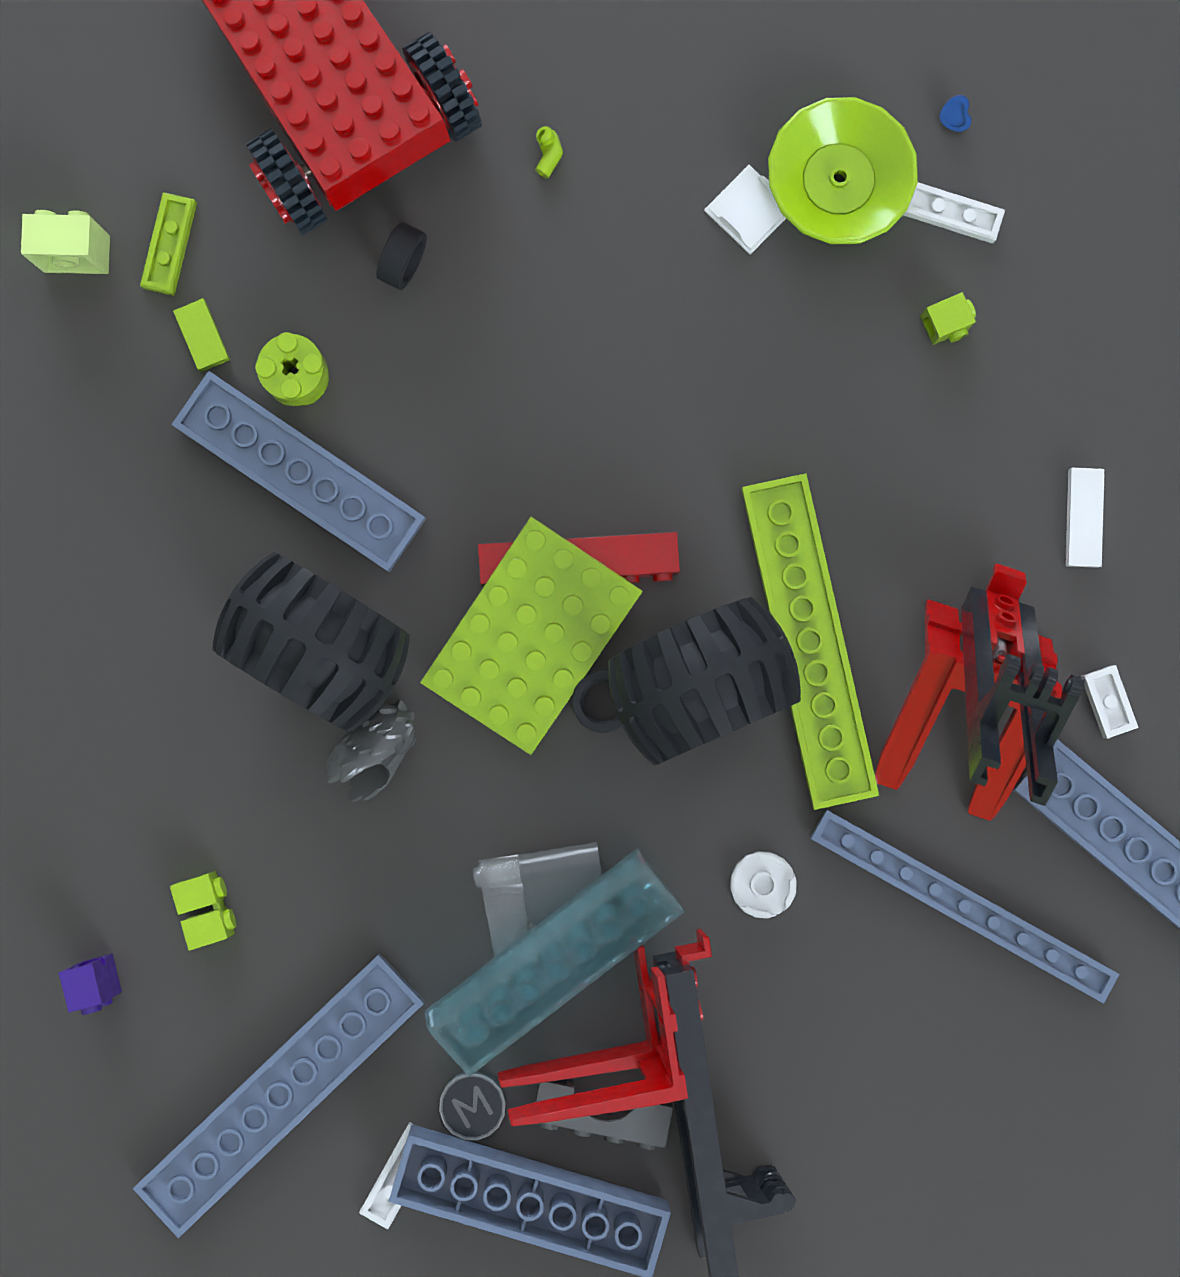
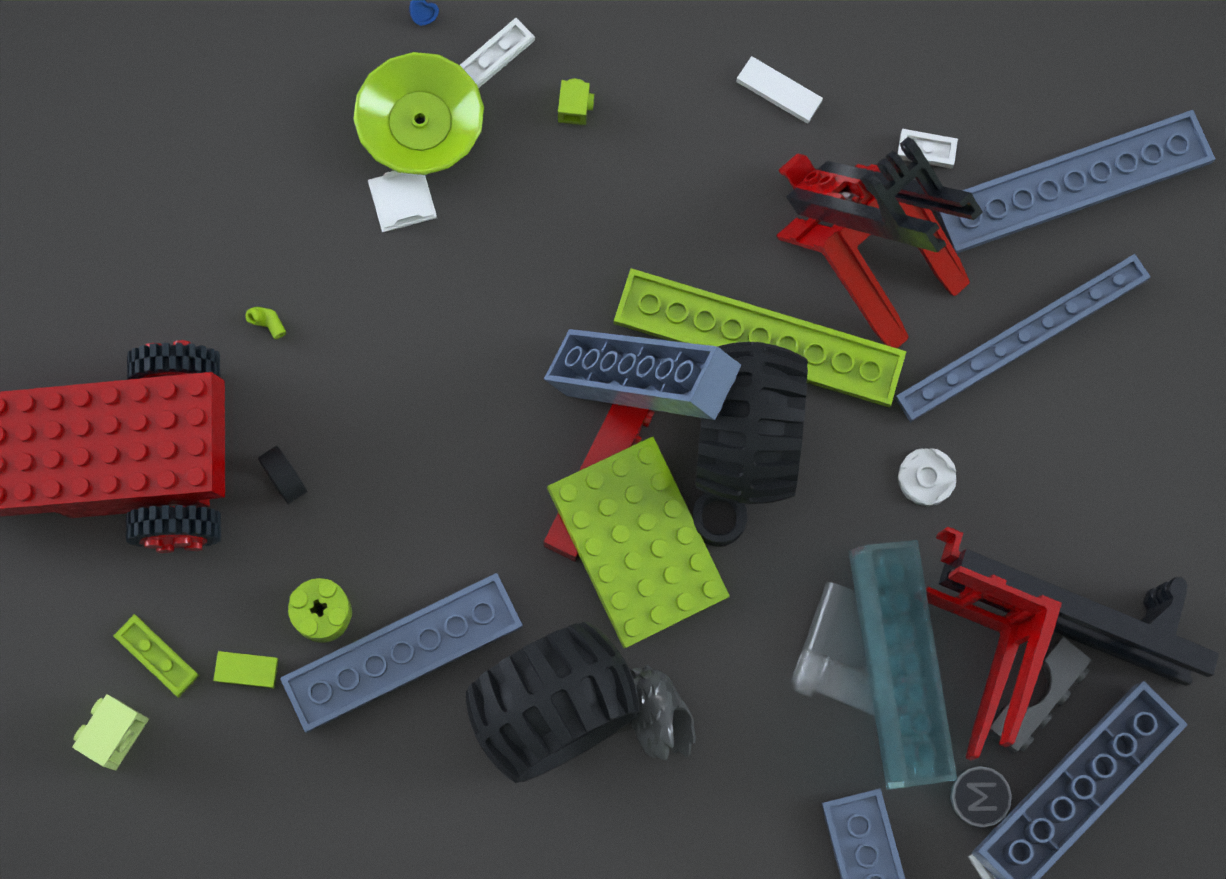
camera: 65 degrees left, 10 degrees down
(688, 548) = (643, 373): none -> sand blue brick

